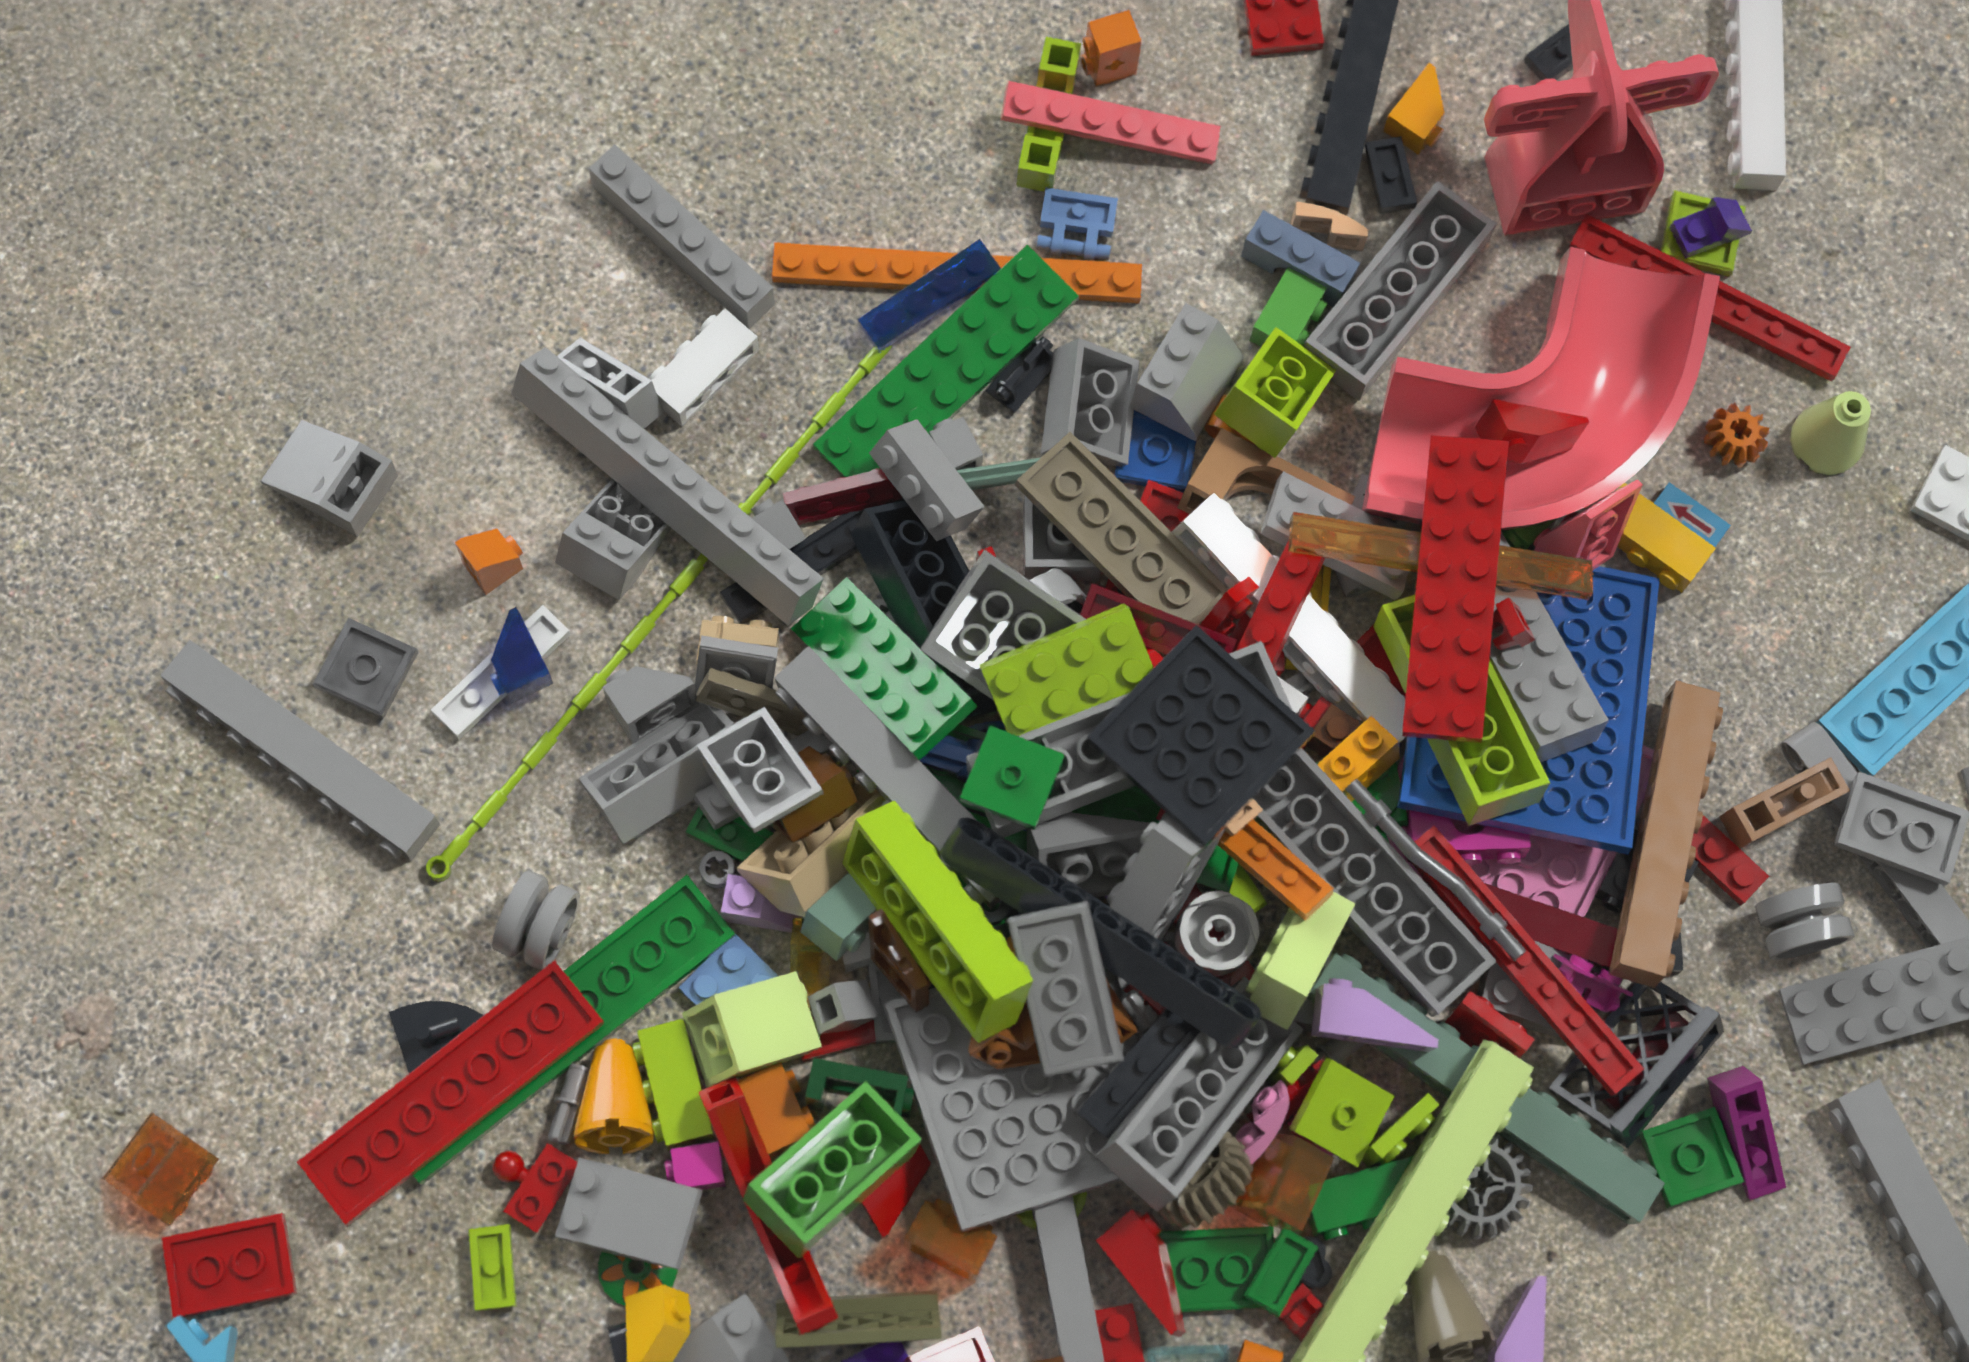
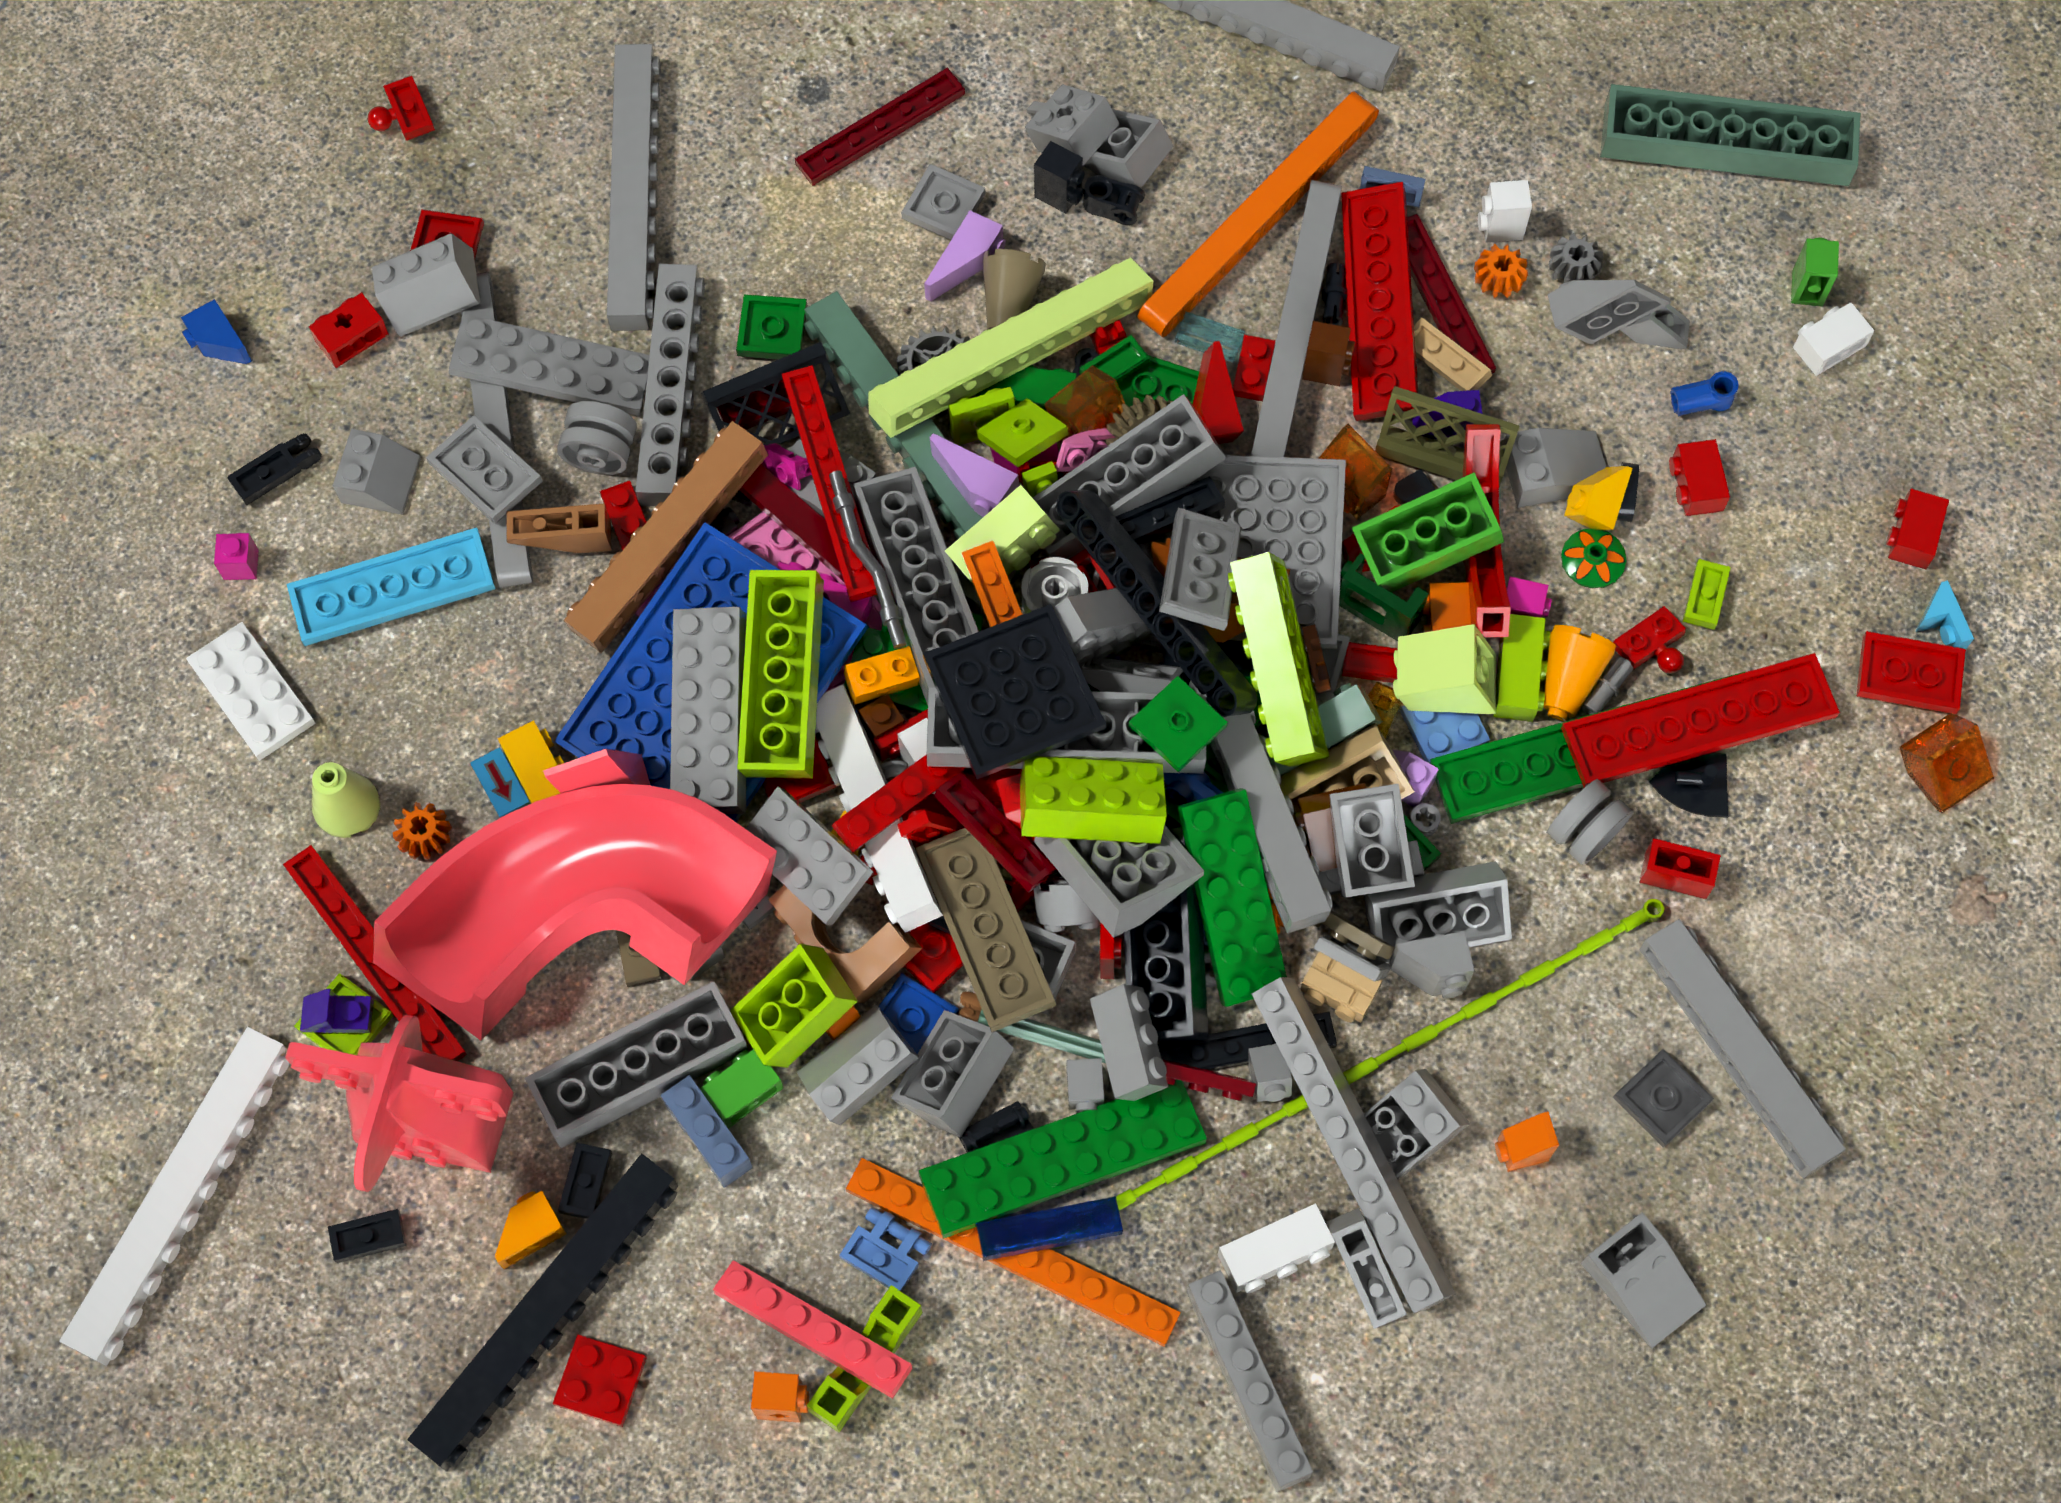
camera: 150 degrees left, 5 degrees down
(422, 913) = (1680, 868): none -> red brick
(476, 693) = (1548, 1048): white plate -> none
(517, 661) = (1533, 1036): clear blue slope -> none
(628, 1214) = (1592, 580): light grey slope -> none
(842, 1006) = (1369, 661): light grey brick -> none
(871, 1264) = (1412, 487): none -> black tile
(1340, 229) = (660, 1147): light nougat slope -> none
(1401, 550) = (738, 788): clear orange tile -> none
(1455, 589) = (741, 745): red plate -> none
(1479, 1021) = (874, 448): red plate -> none
(1515, 626) = (708, 705): red tile -> none
(1530, 430) = (611, 862): red slope -> none
(1749, 1129) = (720, 329): magenta slope -> none
(1785, 1046) = (673, 283): none -> light grey brick

